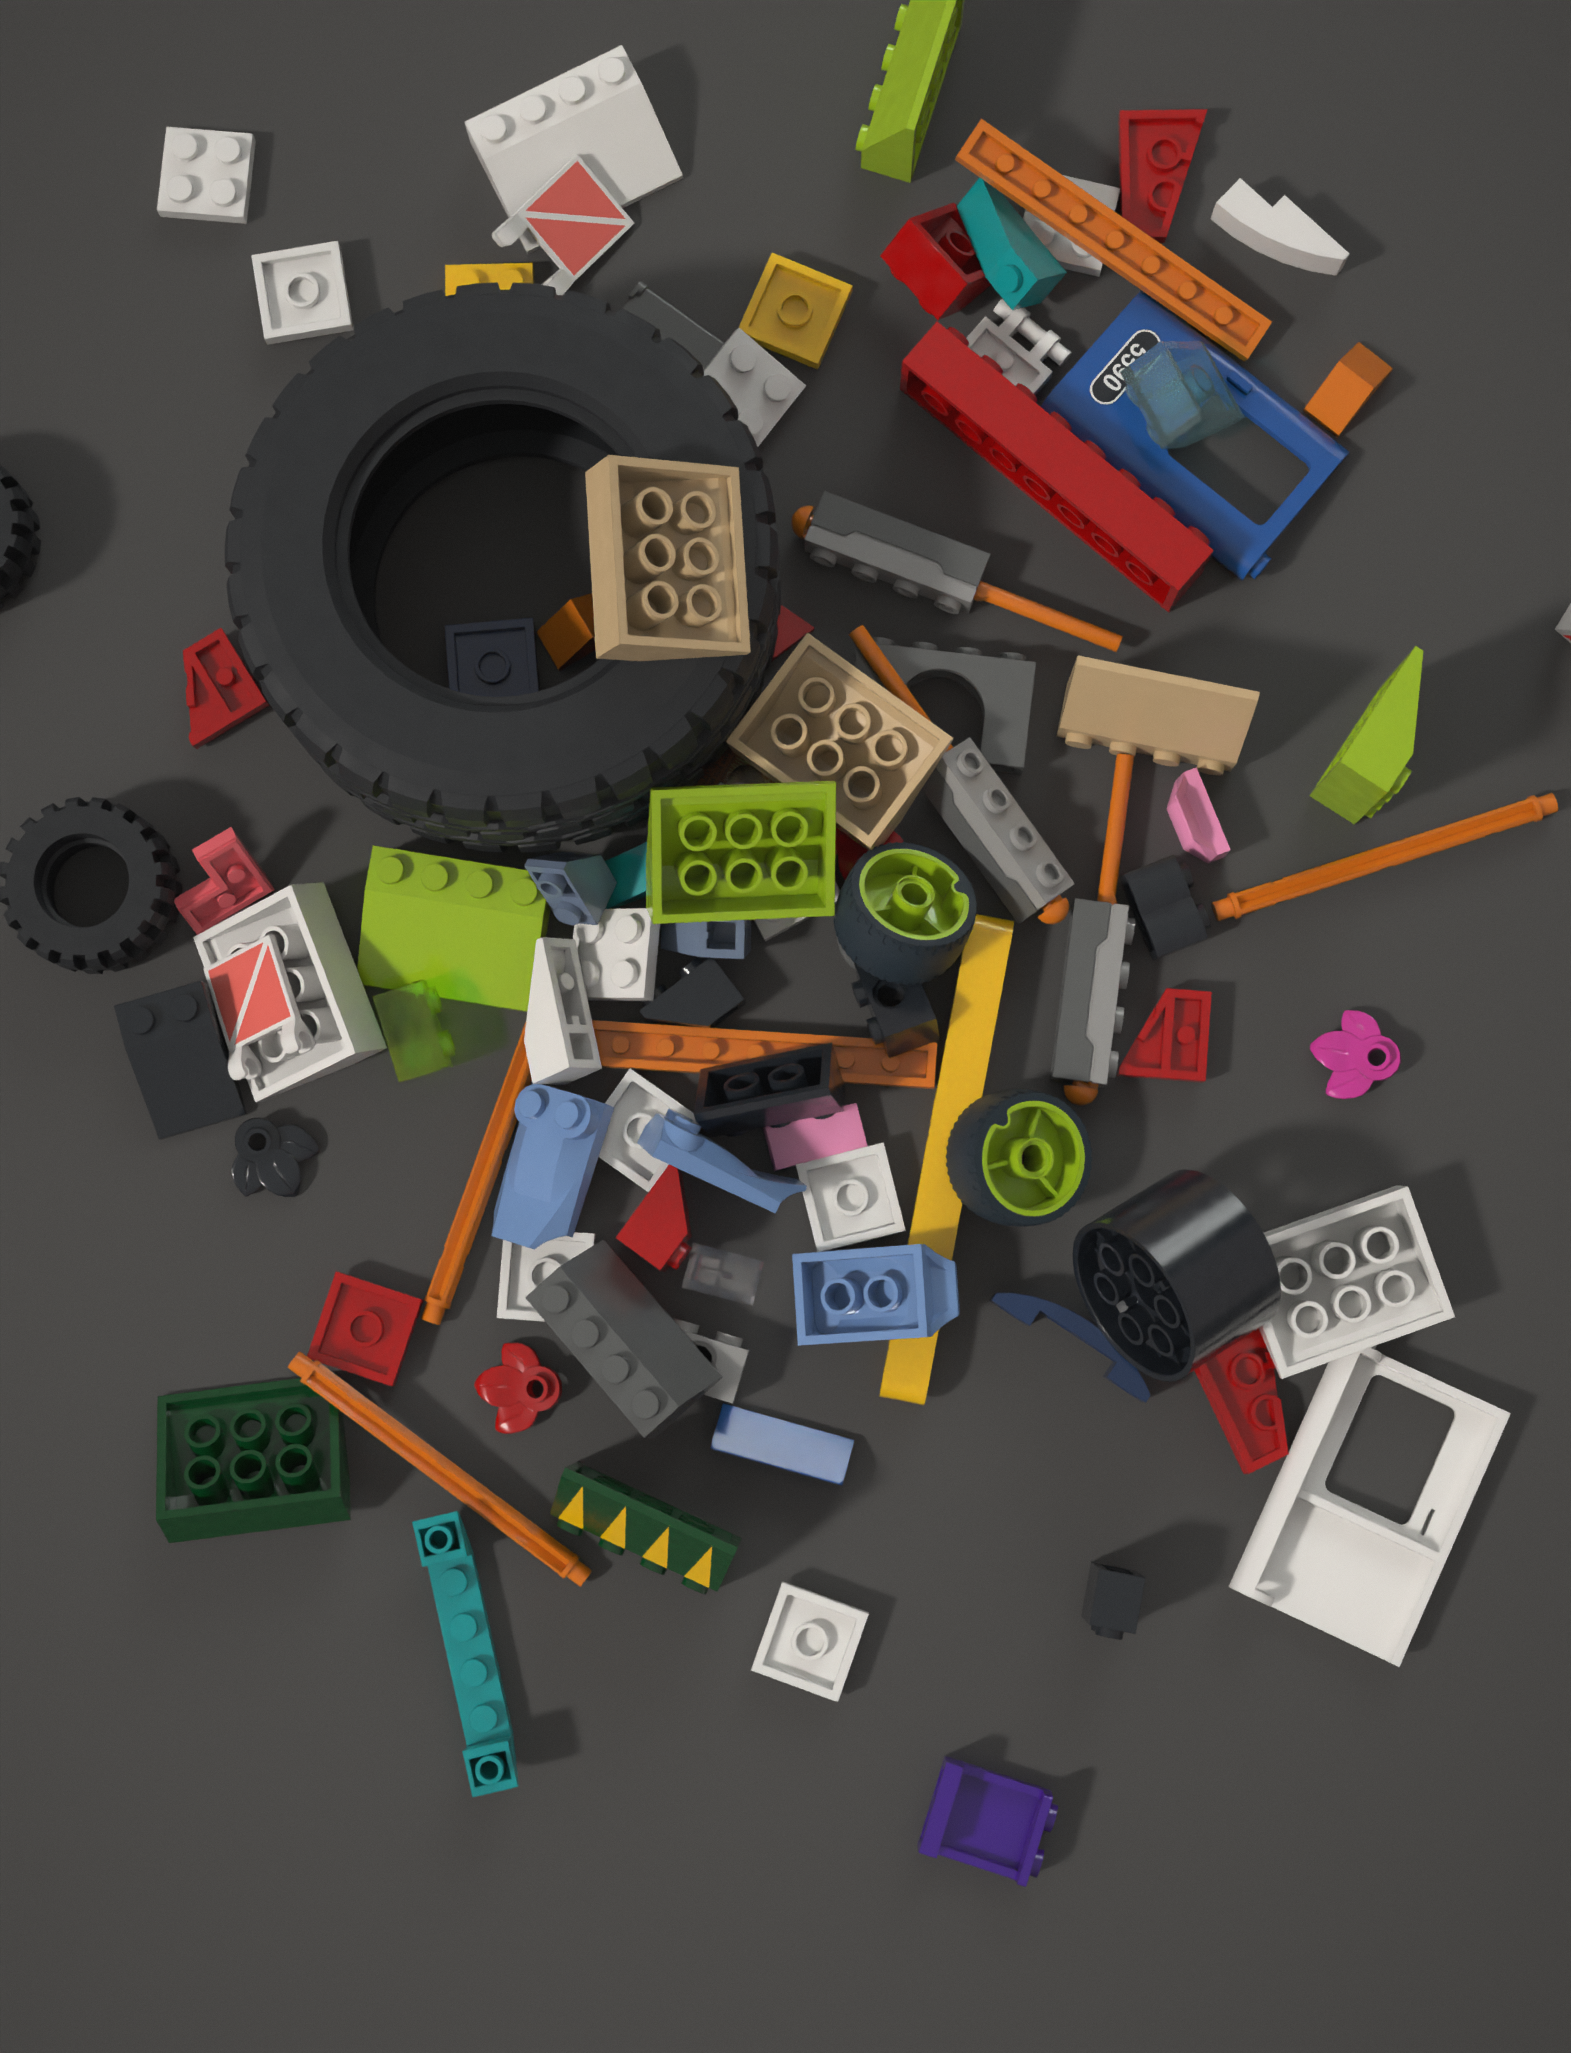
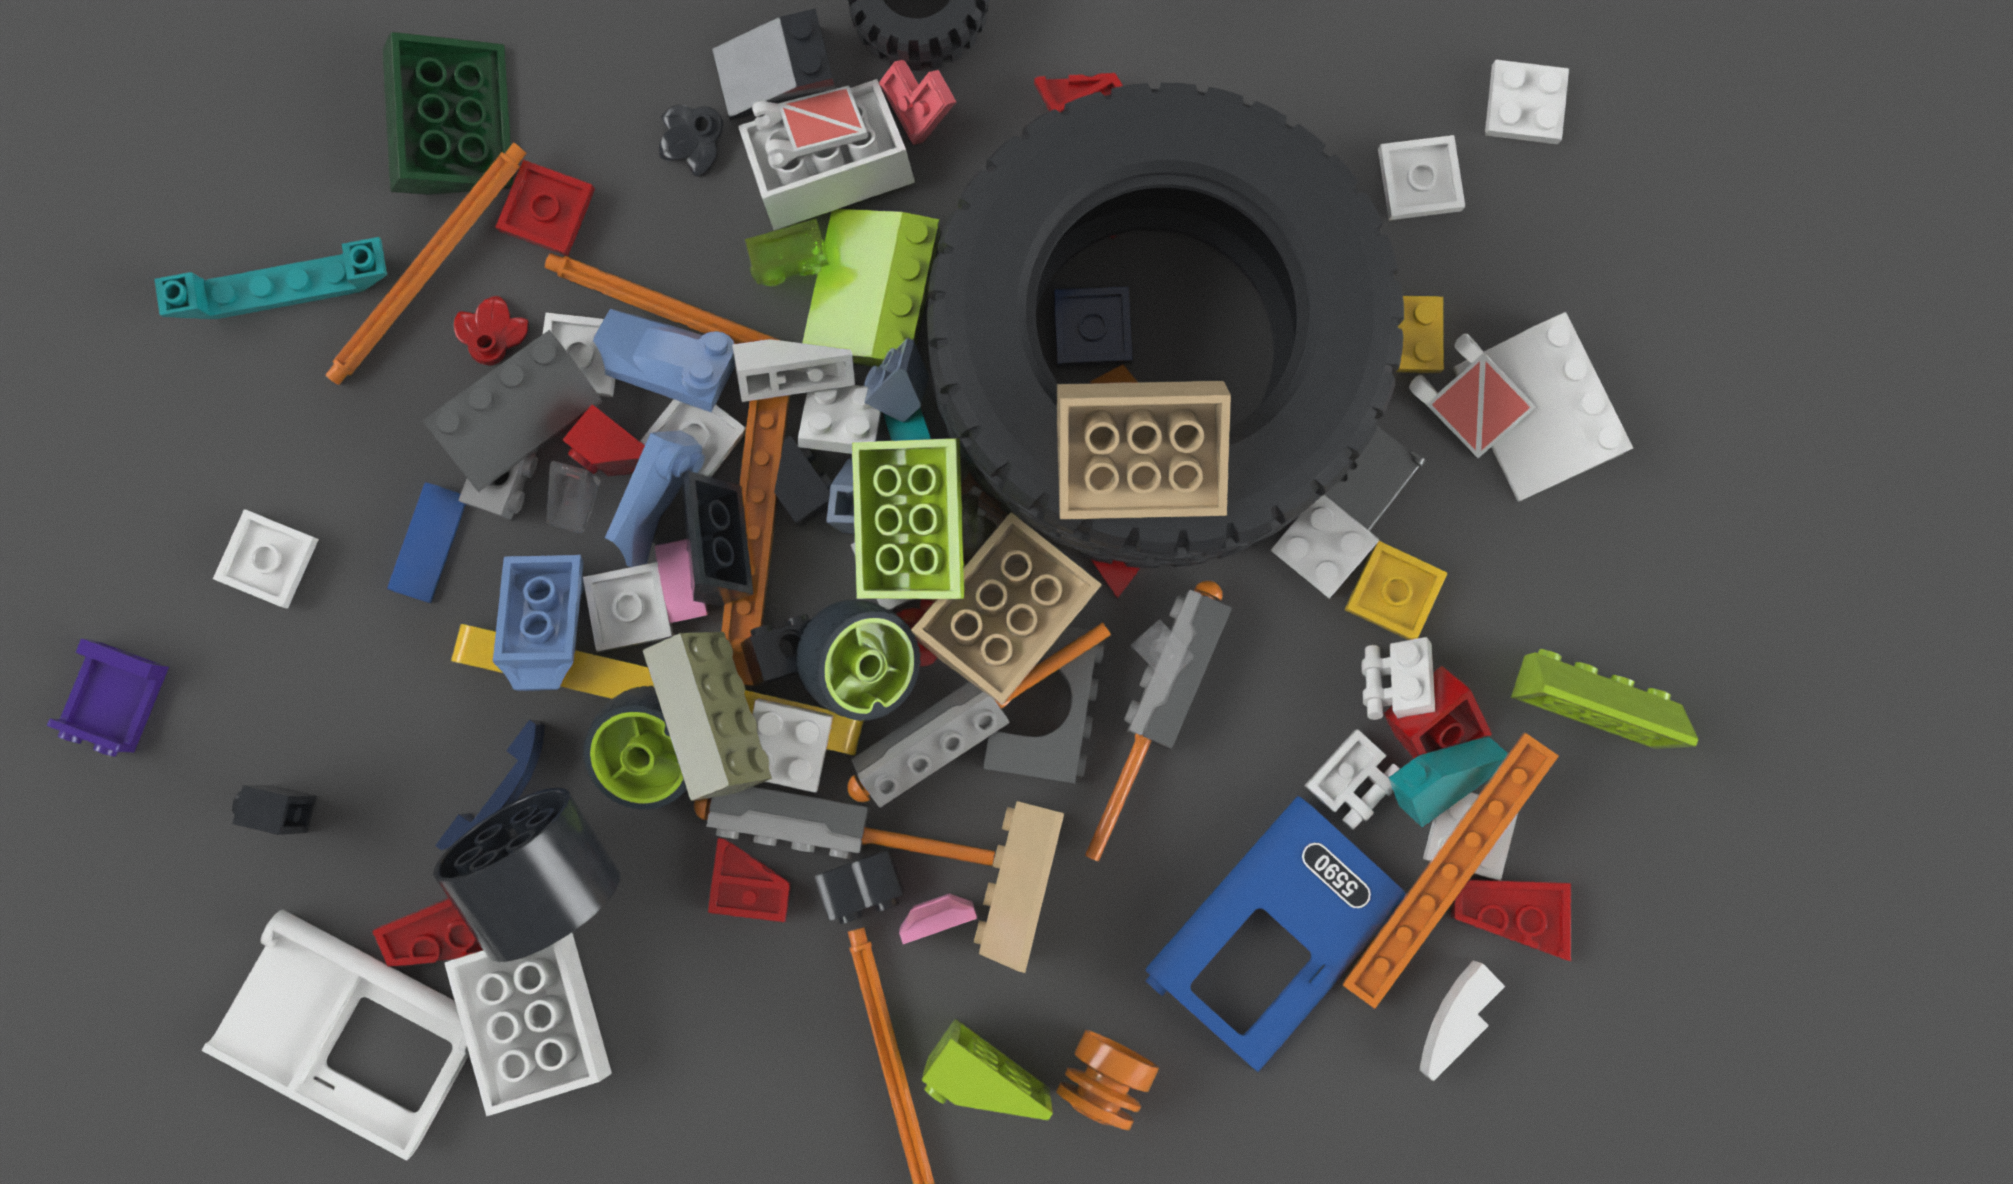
camera: 85 degrees right, 0 degrees up
(644, 1526) = (367, 427): dark green slope -> none
(876, 569) = (1162, 651): none -> clear bracket
(894, 288) = (1411, 679): none -> white plate
(981, 1076) = (707, 714): none -> olive brick
(1008, 994) = (793, 742): none -> white plate
(1054, 465) = (1247, 807): red brick -> none
(1180, 393) = (1308, 922): clear light blue slope -> none
(1347, 389) = (1315, 1074): orange slope -> none
(1349, 1053) = (726, 1039): dark pink plate -> none
(1370, 613) = (1107, 1079): none -> orange wheel

